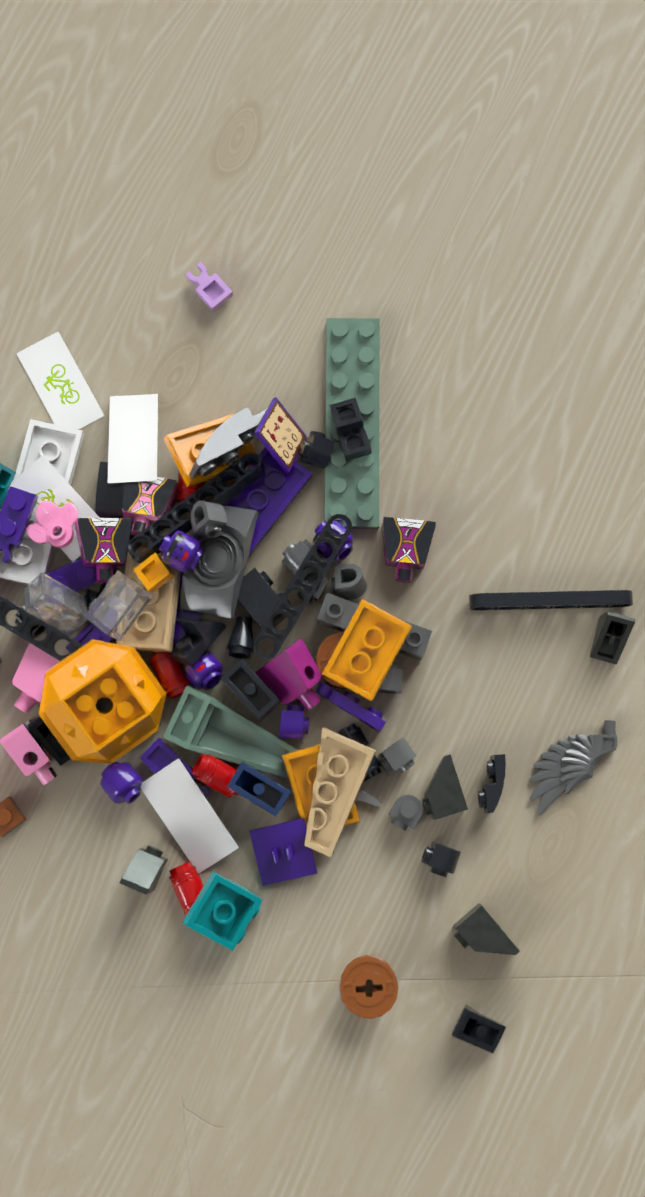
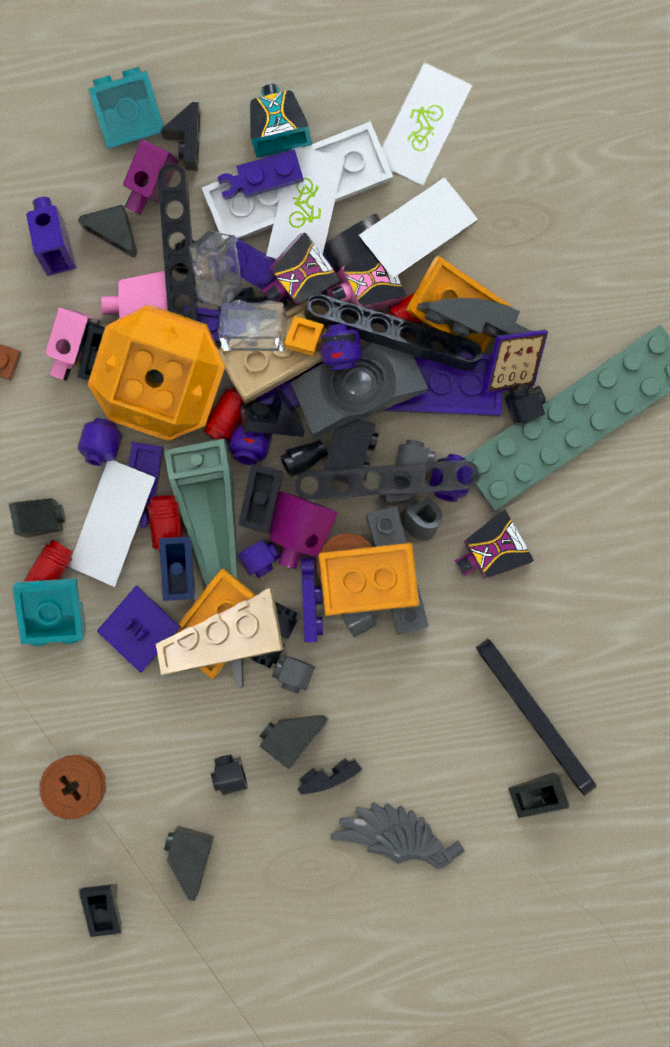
camera: 55 degrees right, 5 degrees up
(51, 521) = (287, 209): bright pink plate -> none
(208, 519) = (387, 351): dark grey plate -> none
(210, 289) = (612, 197): lavender plate -> none
(350, 429) = (567, 421): black slope -> none
(406, 812) = (249, 715): dark grey plate -> none

